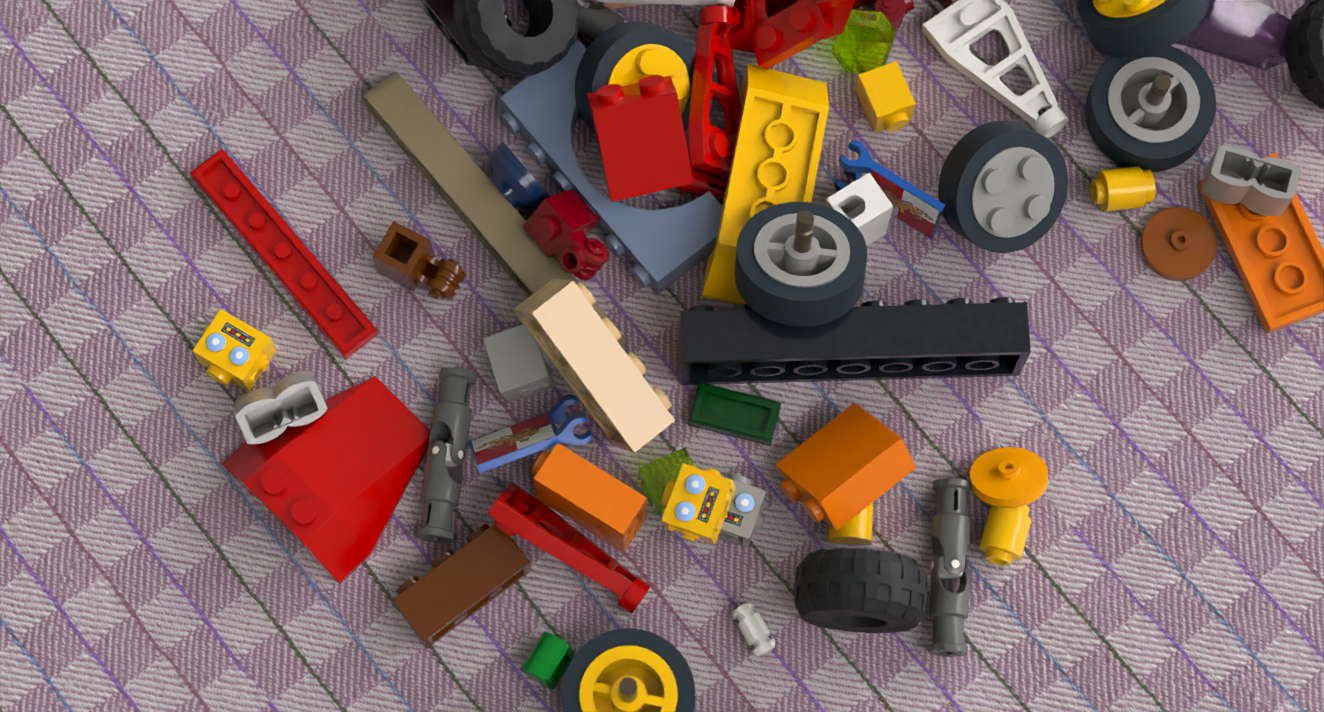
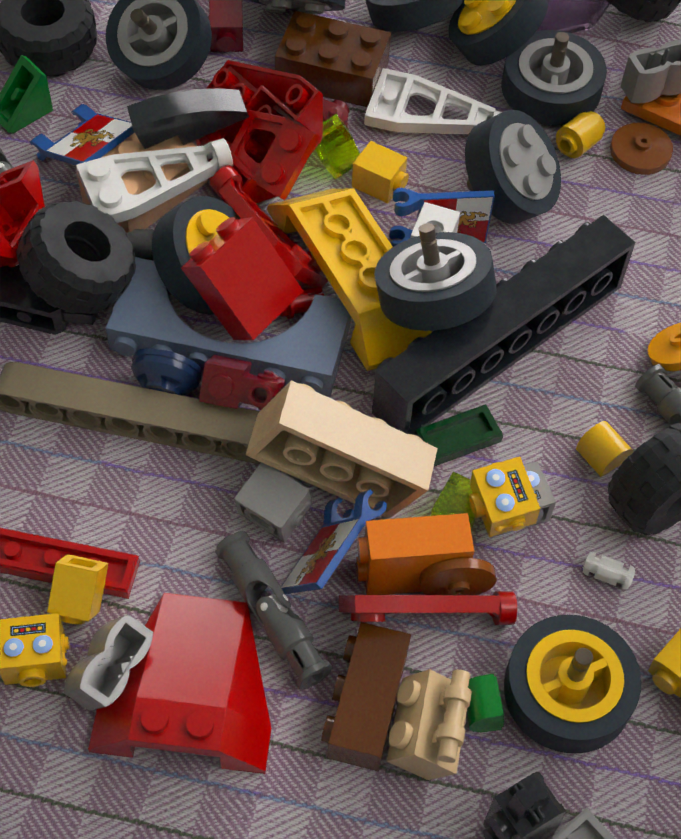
camera: 40 degrees left, 15 degrees down
(303, 325) = (77, 589): none -> yellow brick
(411, 262) = (127, 488): reddish brown brick -> none
(485, 643) = (430, 723): none -> tan brick
(608, 544) = (458, 577): none -> dark orange piece
(844, 467) = (575, 407): orange brick -> none

